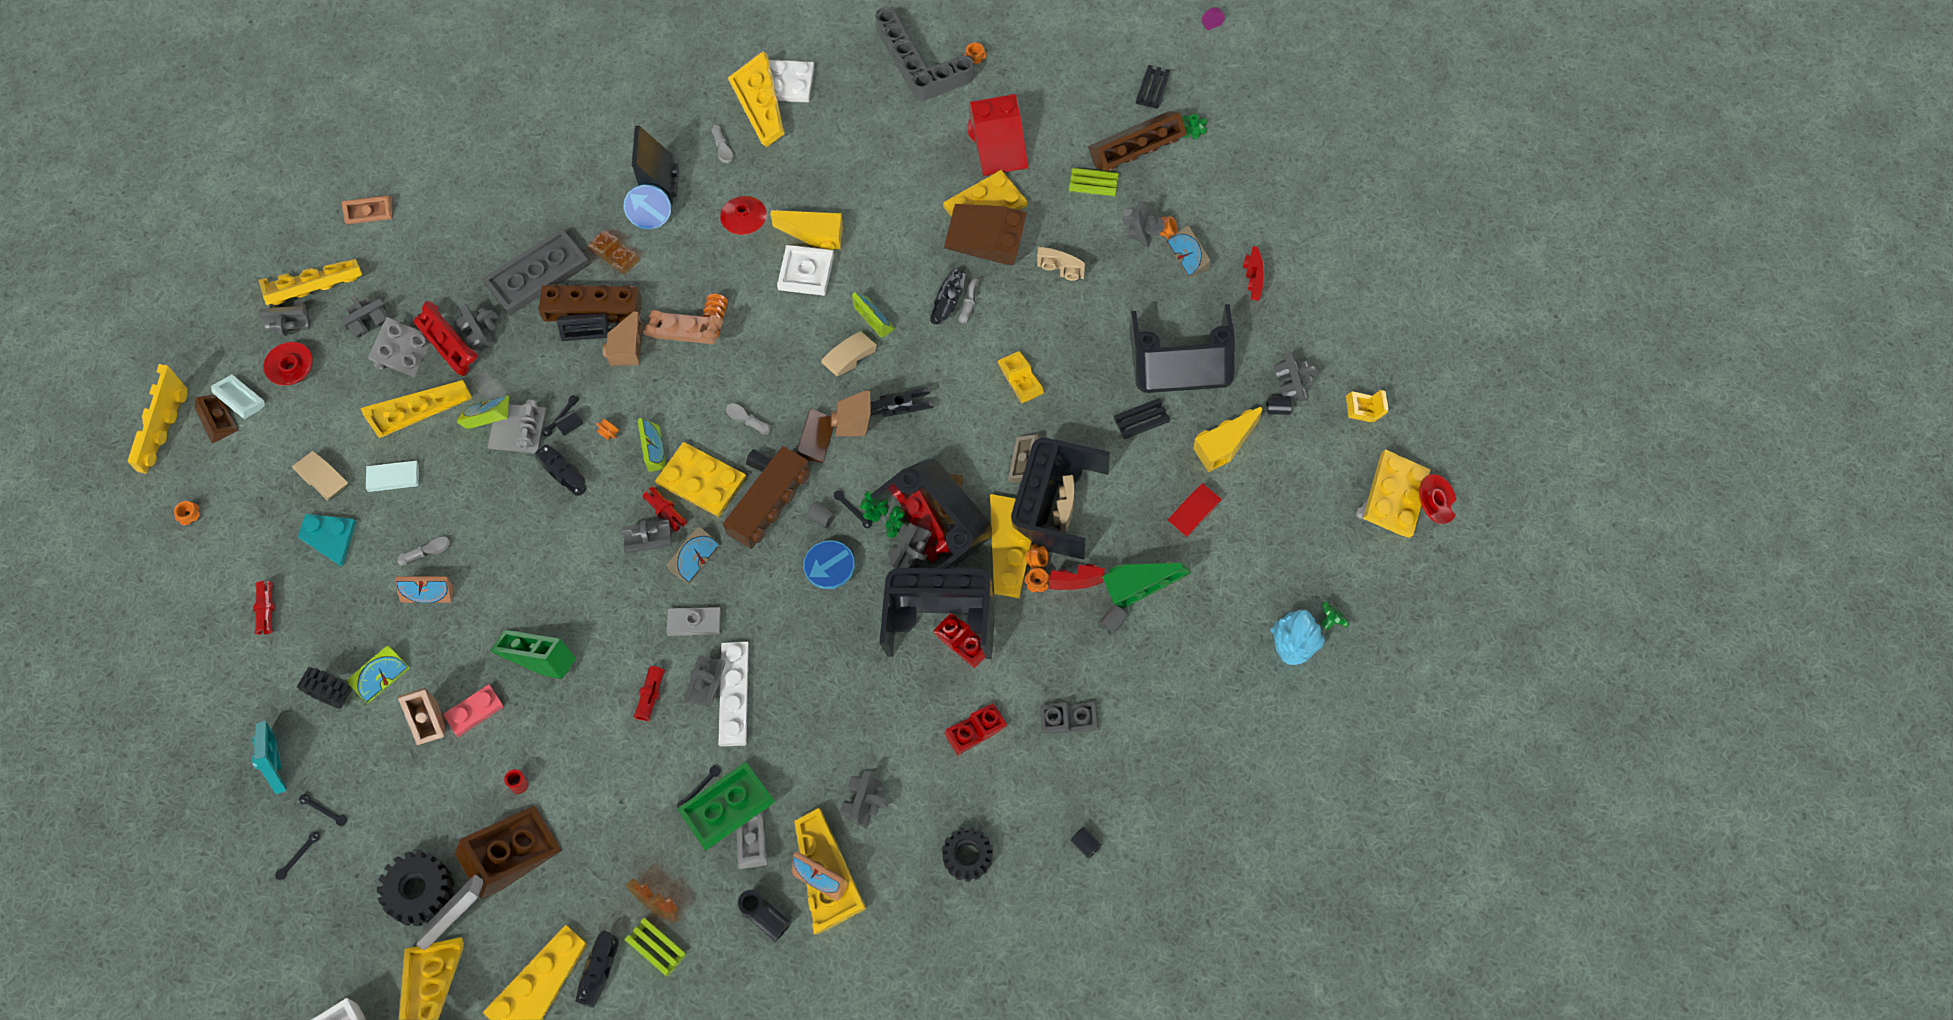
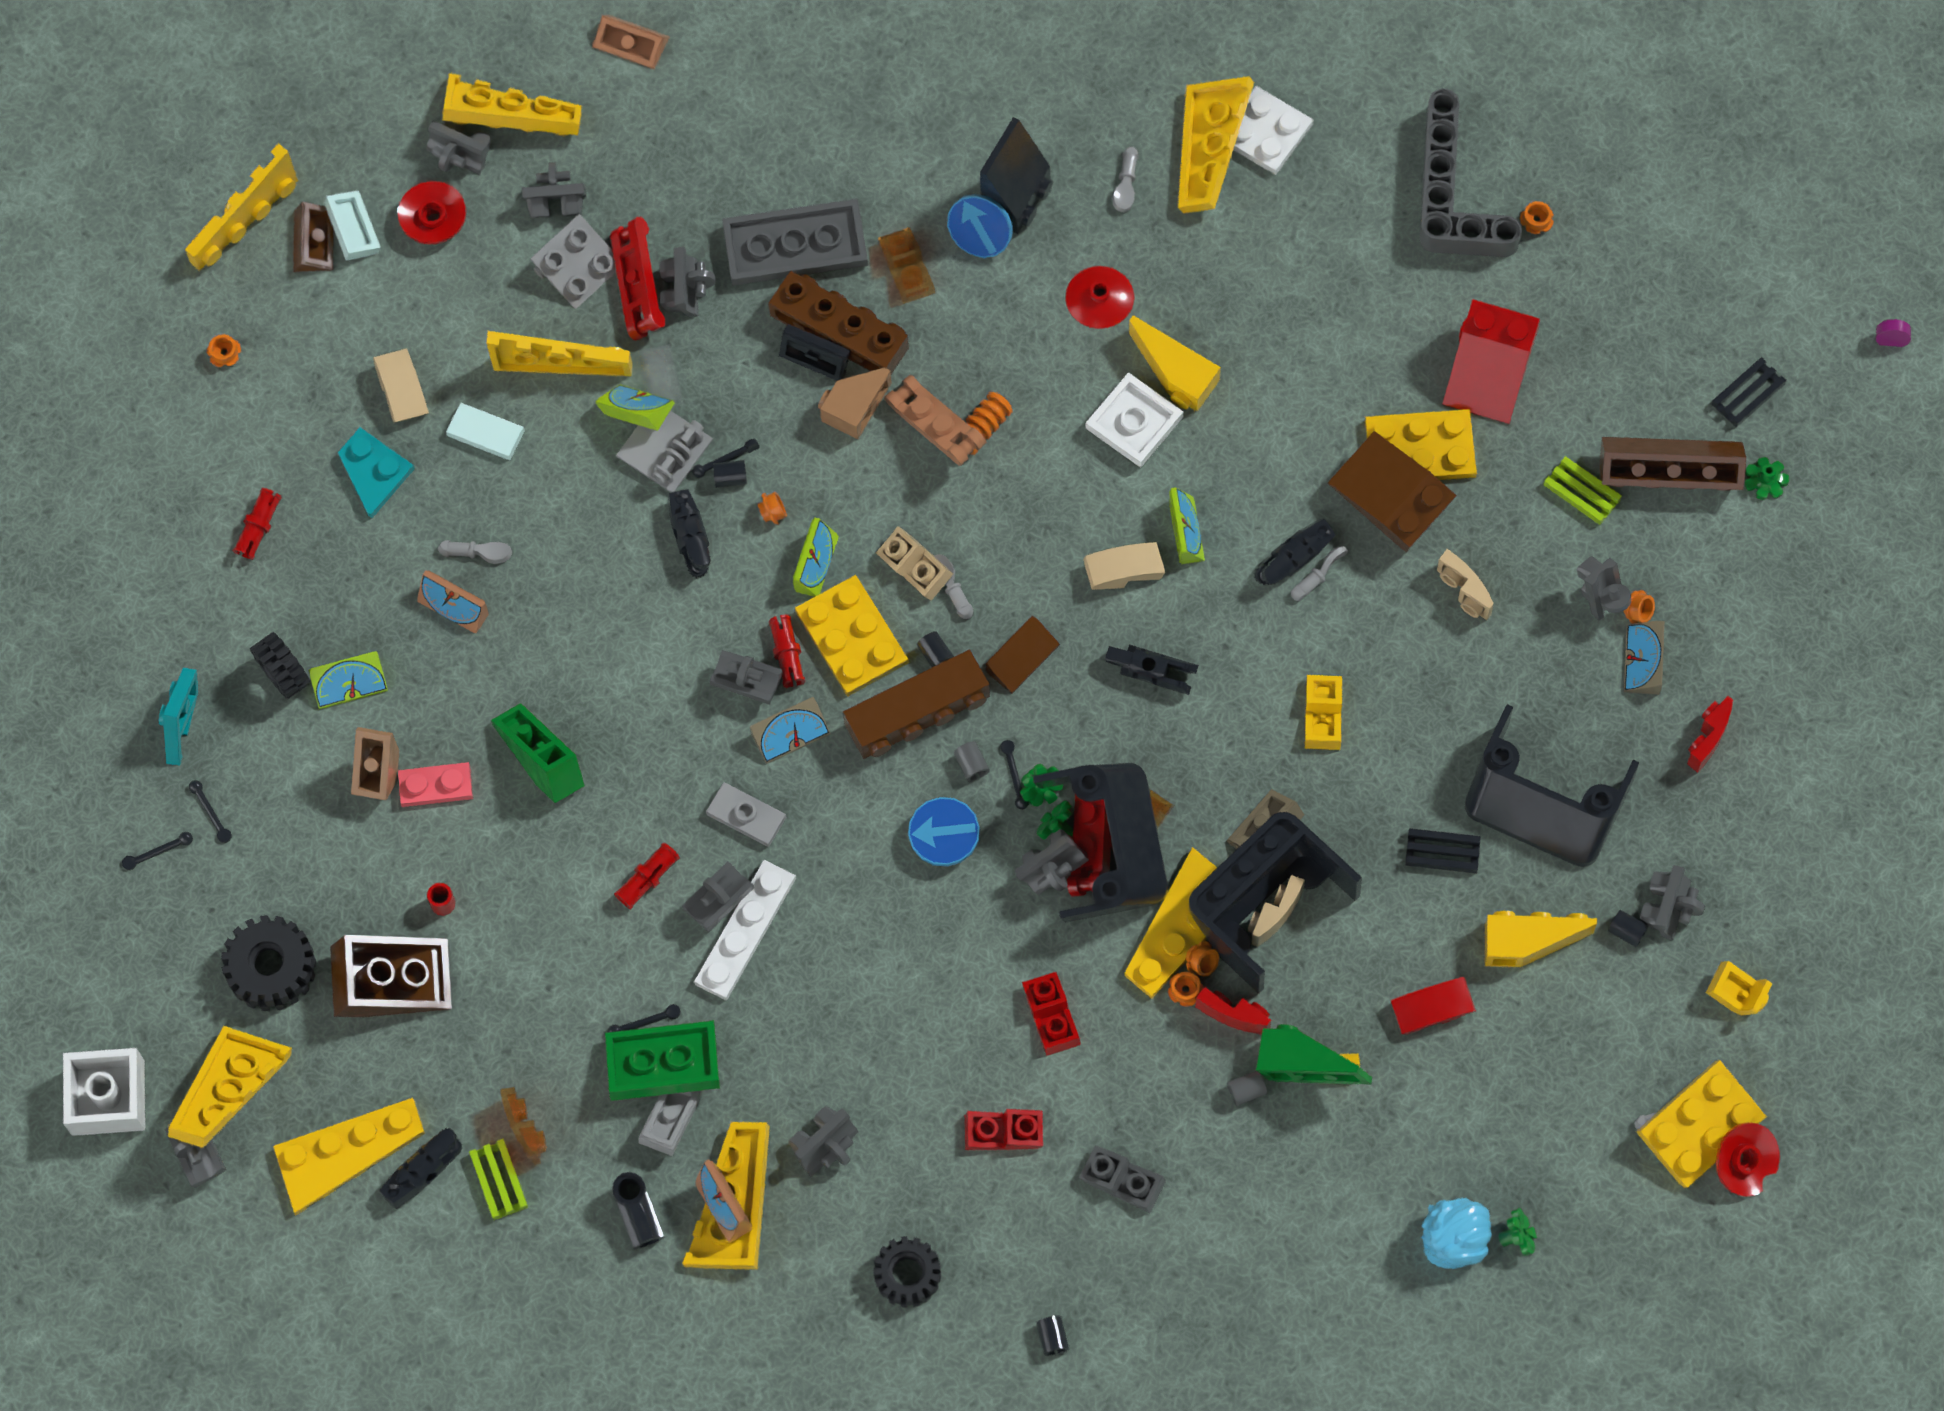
camera: 30 degrees right, 5 degrees up
(450, 912) = (292, 1013): light grey tile -> none
(717, 416) = (914, 563): none -> tan slope
(852, 415) = (1077, 653): medium nougat slope -> none
(937, 591) = (1024, 922): black windscreen -> none

